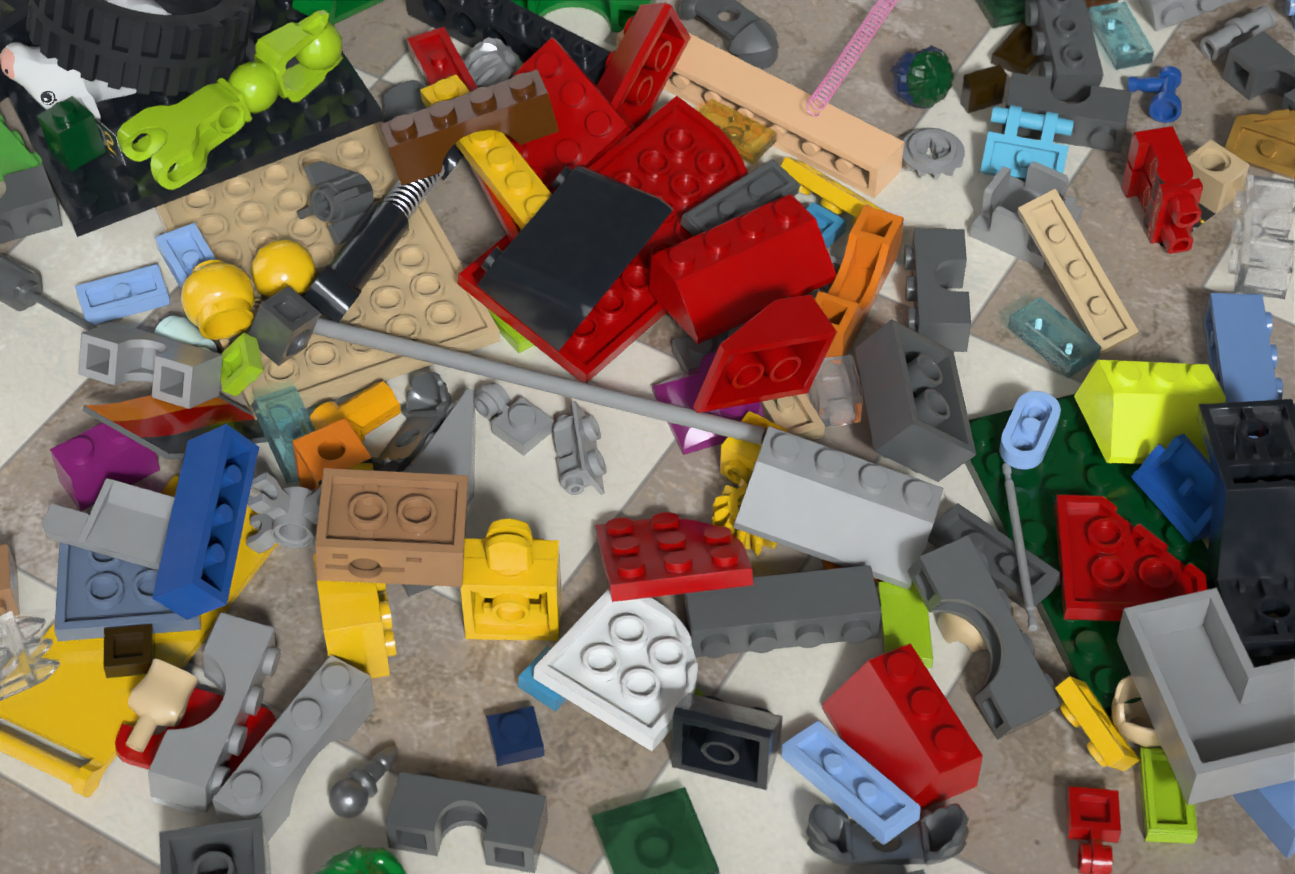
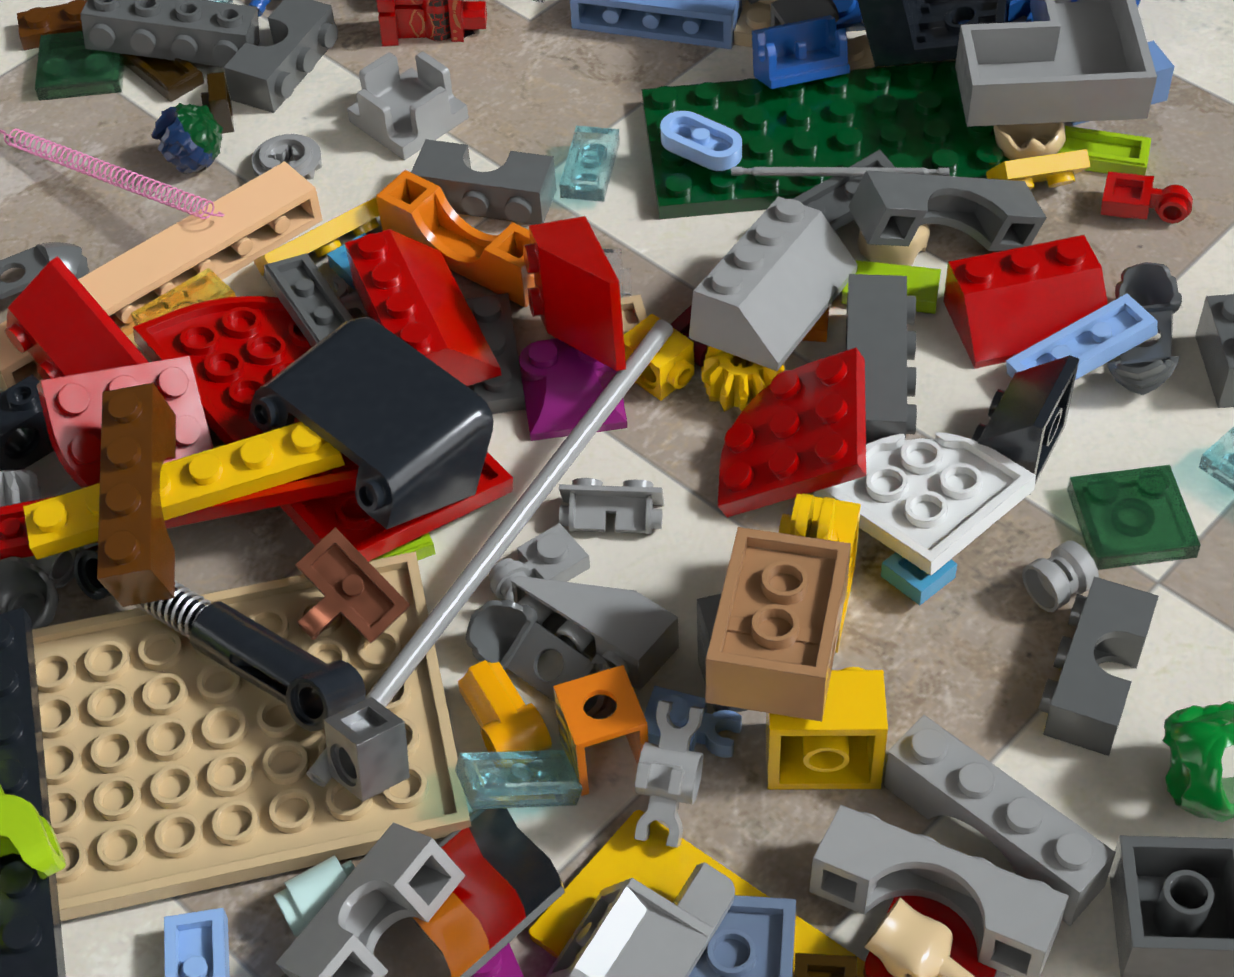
camera: 75 degrees left, 0 degrees up
(183, 251) = (196, 861): light blue plate -> none
(206, 523) = (690, 846): blue brick -> none
(218, 299) = (291, 820): yellow piece -> none
(240, 364) = (404, 804): lime plate -> none
(282, 265) = (249, 757): yellow hair -> none
(340, 198) = (163, 674): dark grey brick -> none
(350, 795) = (1052, 775): flat silver bar -> none
(431, 285) = (349, 589): none -> copper plate
(515, 736) = (983, 617): dark blue plate -> none
(561, 784) = (1056, 578): none -> light grey wheel
(914, 401) = (647, 212): dark grey brick -> none
(997, 362) = (589, 163): none -> clear light blue plate
(1020, 152) = (329, 94): medium azure plate -> none
(1054, 337) = (557, 120): clear light blue plate -> none
(1077, 271) = (509, 73): tan plate -> none
(1112, 563) = (875, 114): red plate -> none
(1145, 405) = (702, 58): neon yellow slope -> none

